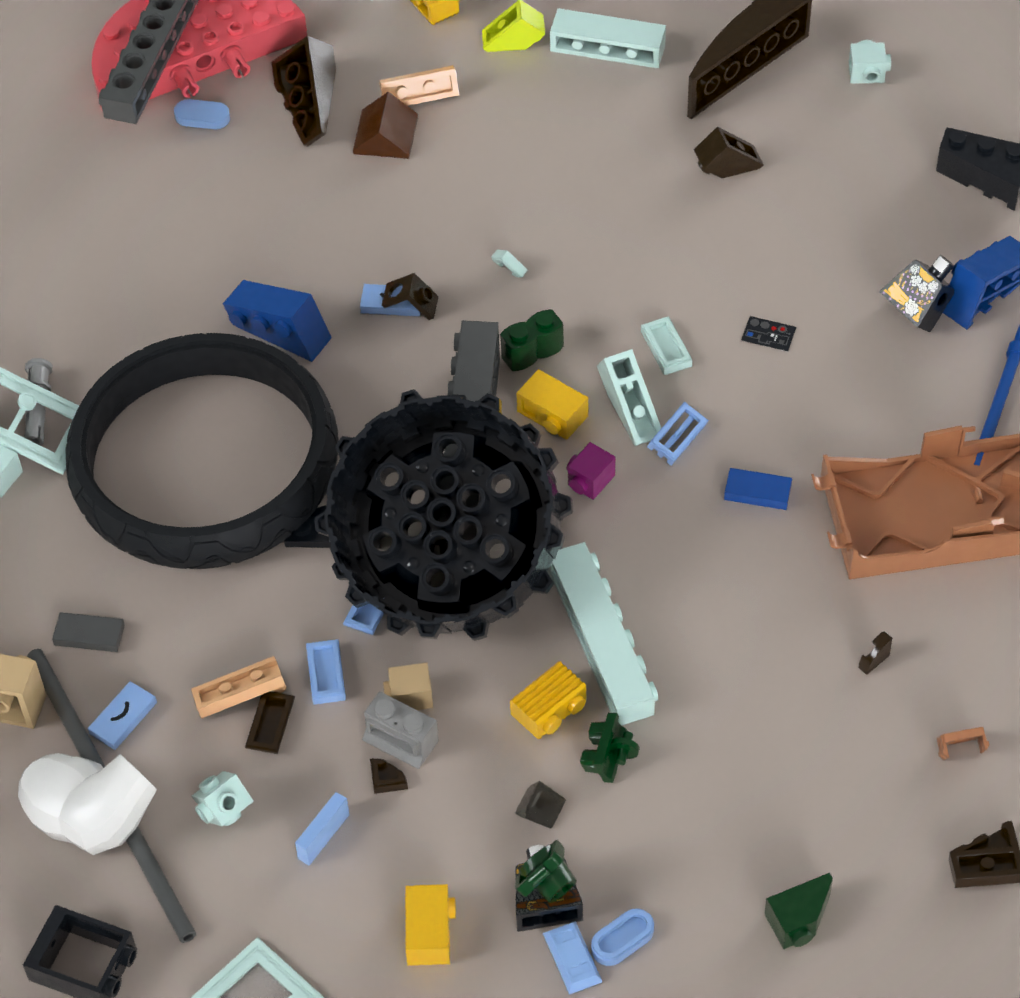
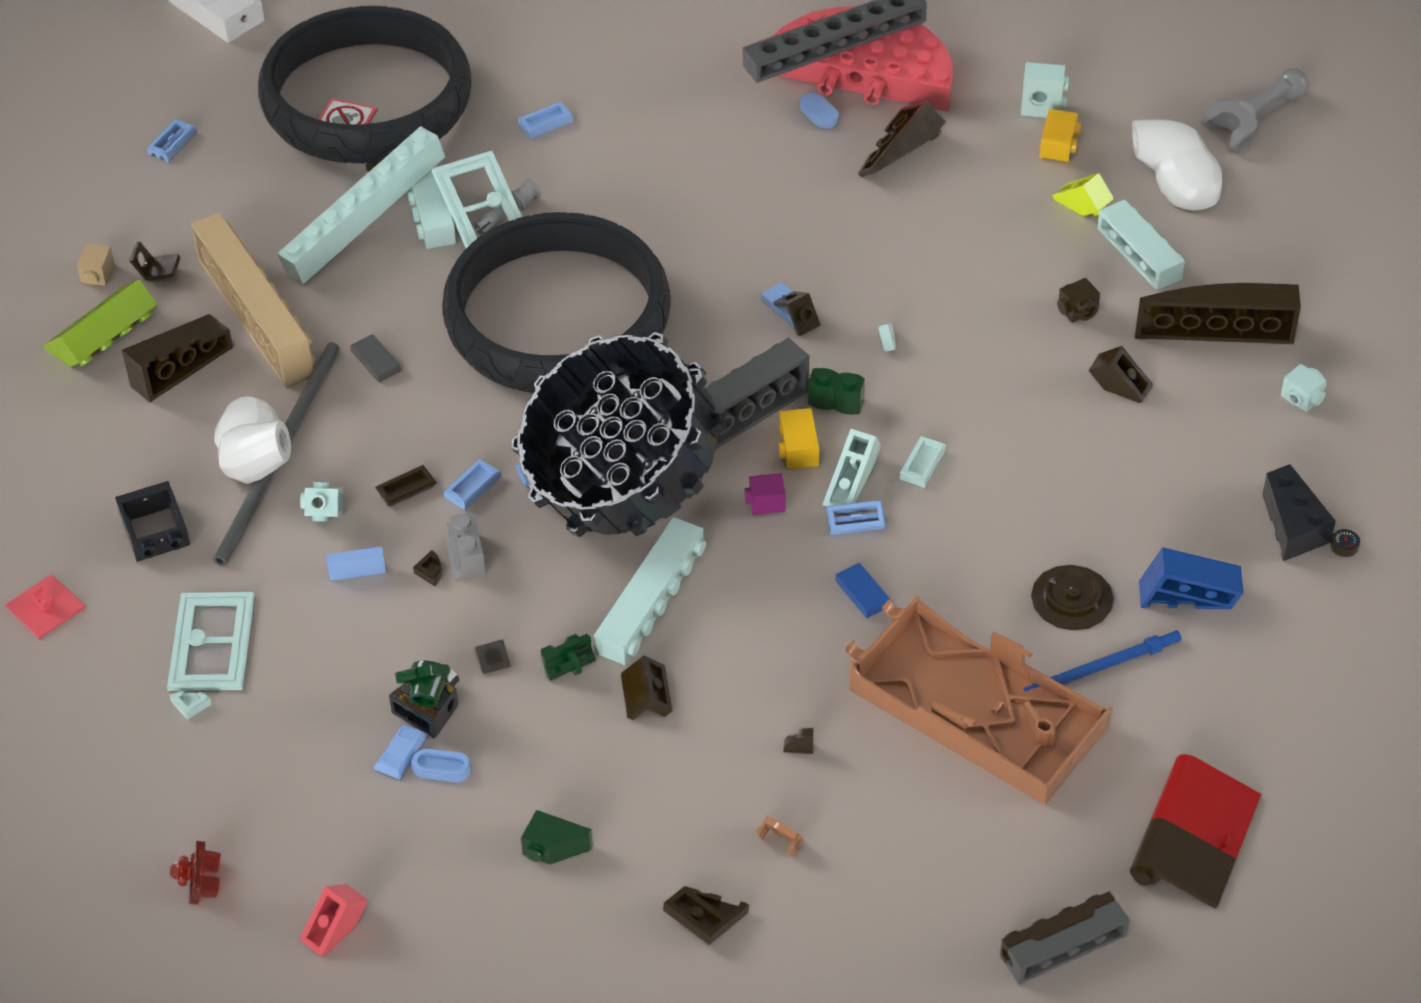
camera: 45 degrees right, 5 degrees down
(122, 715) = (335, 417): light blue tile -> none
(238, 687) = (412, 451): light nougat hinge -> none
(280, 317) = (701, 263): blue wedge -> none
(386, 129) = (921, 201): reddish brown slope -> none
(410, 685) = (501, 529): tan brick -> none
(422, 86) = (972, 188): light nougat hinge -> none
(428, 924) = (343, 662): yellow brick -> none
(549, 700) = (569, 602): yellow brick -> none
(620, 118) = (1078, 300): none -> dark brown brick
(702, 720) = (646, 688): none -> dark brown panel
(768, 333) = (1001, 506): black sticker -> none
(911, 363) = (1072, 597): none -> dark brown piece
(921, 292) = (1125, 554): torso -> none

